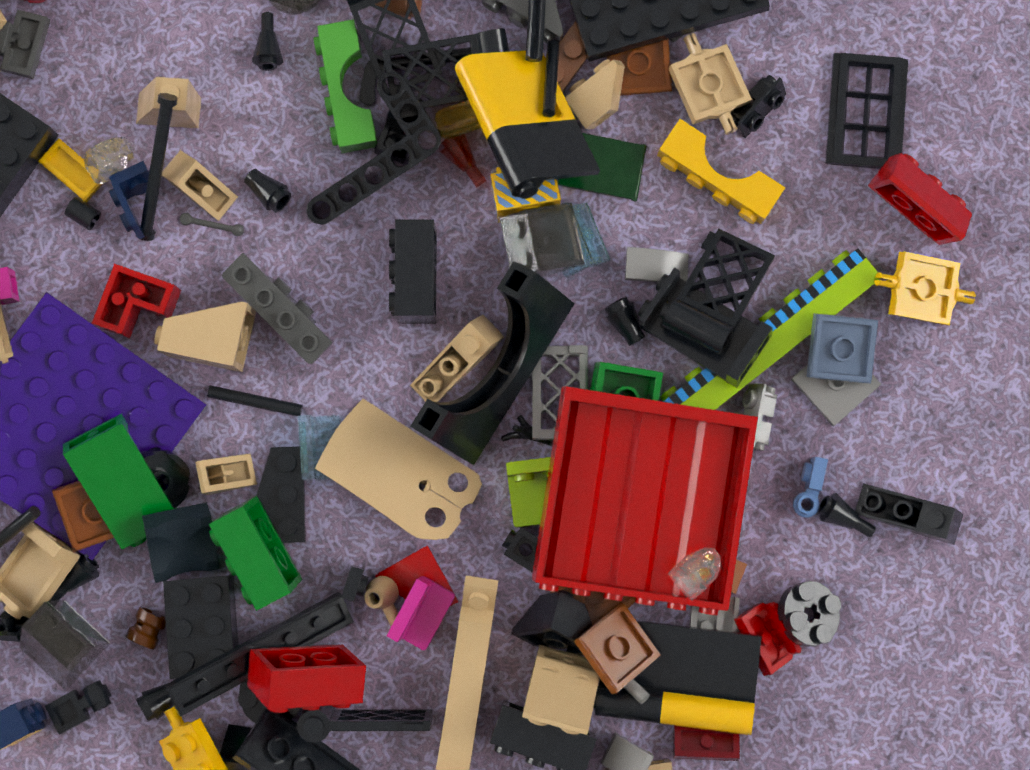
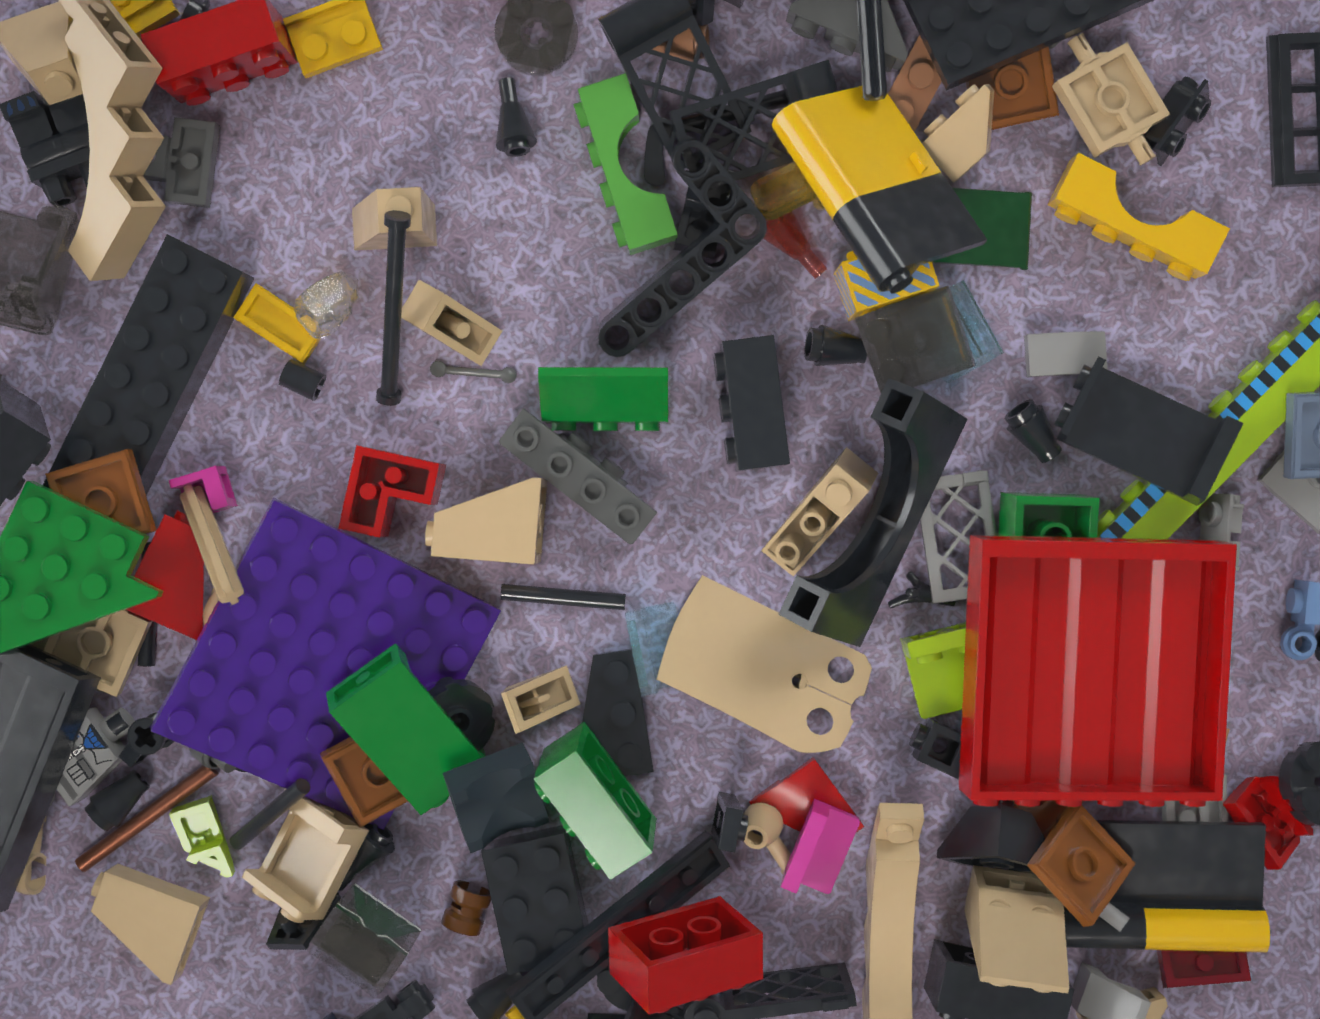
camera: 10 degrees left, 5 degrees up
(125, 185) = (354, 334): dark blue bracket -> none
(269, 191) = (542, 318): black cone -> none
(305, 252) = (603, 397): none -> green slope
(482, 239) = (833, 347): none -> black cone
(551, 76) = (901, 121): black bar -> none
(696, 572) = (1178, 758): clear rock -> none
(705, 324) = (1145, 426): black piece -> none

